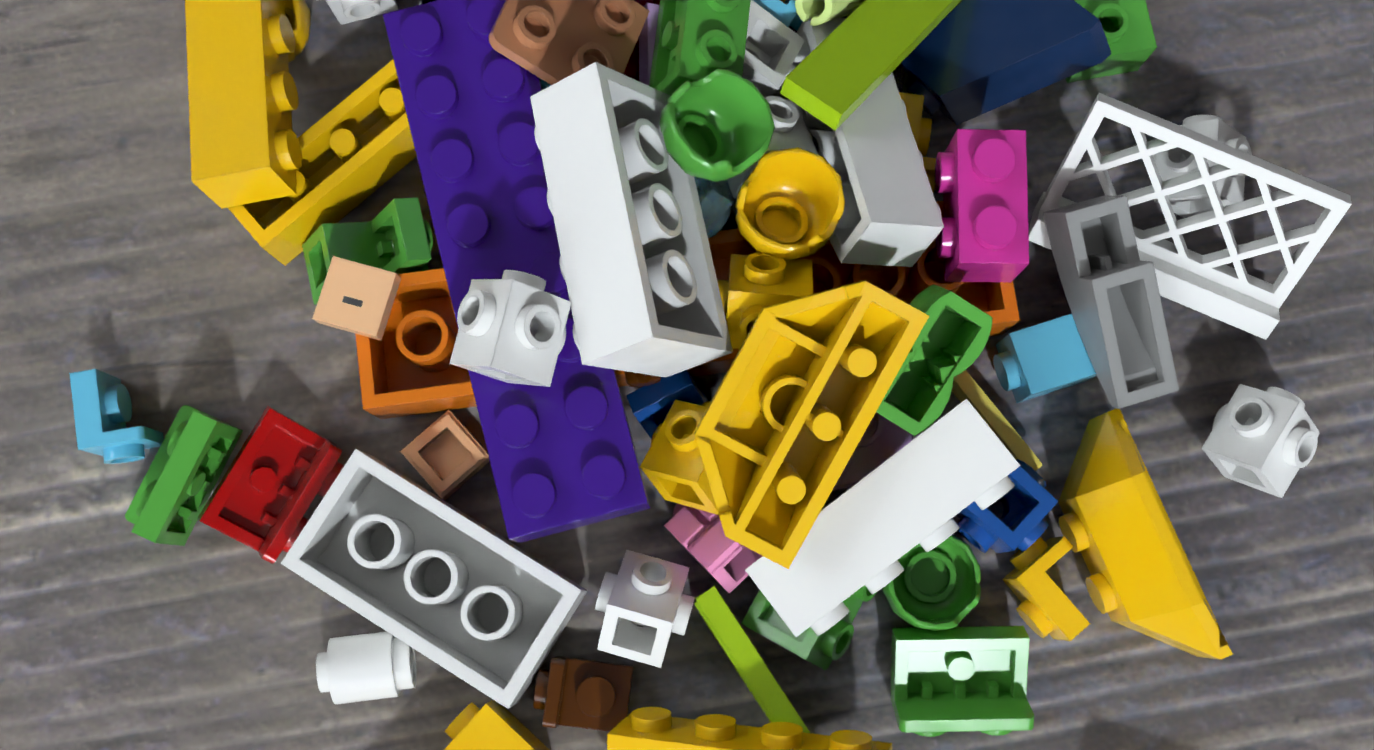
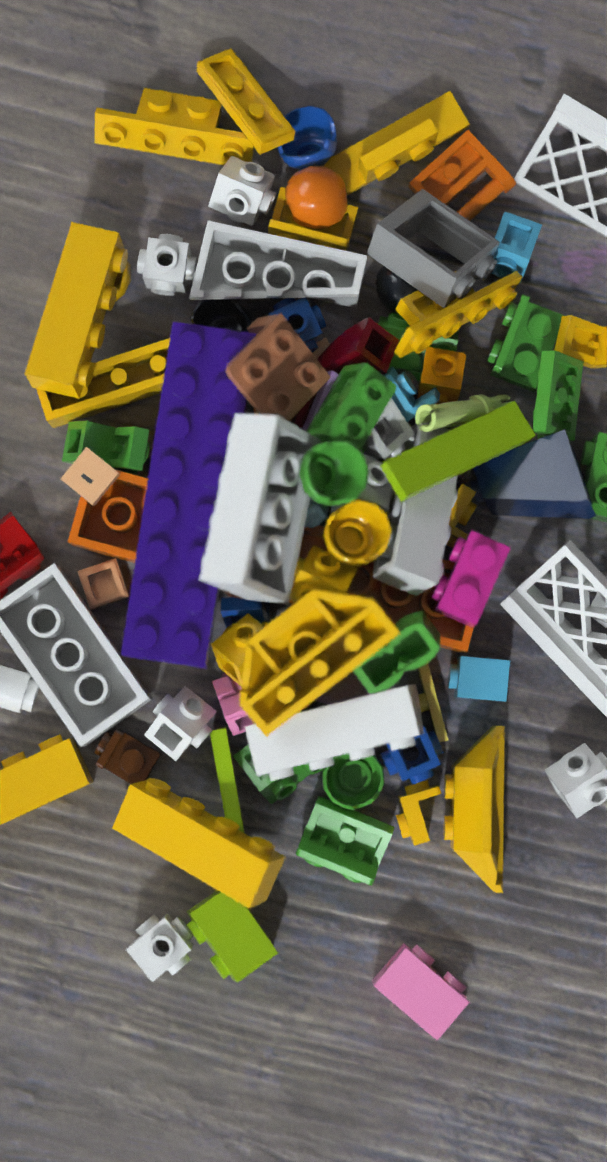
camera: 20 degrees right, 5 degrees up
(511, 329) = (169, 543): white brick -> none
(1113, 298) = (526, 662): light grey slope -> none

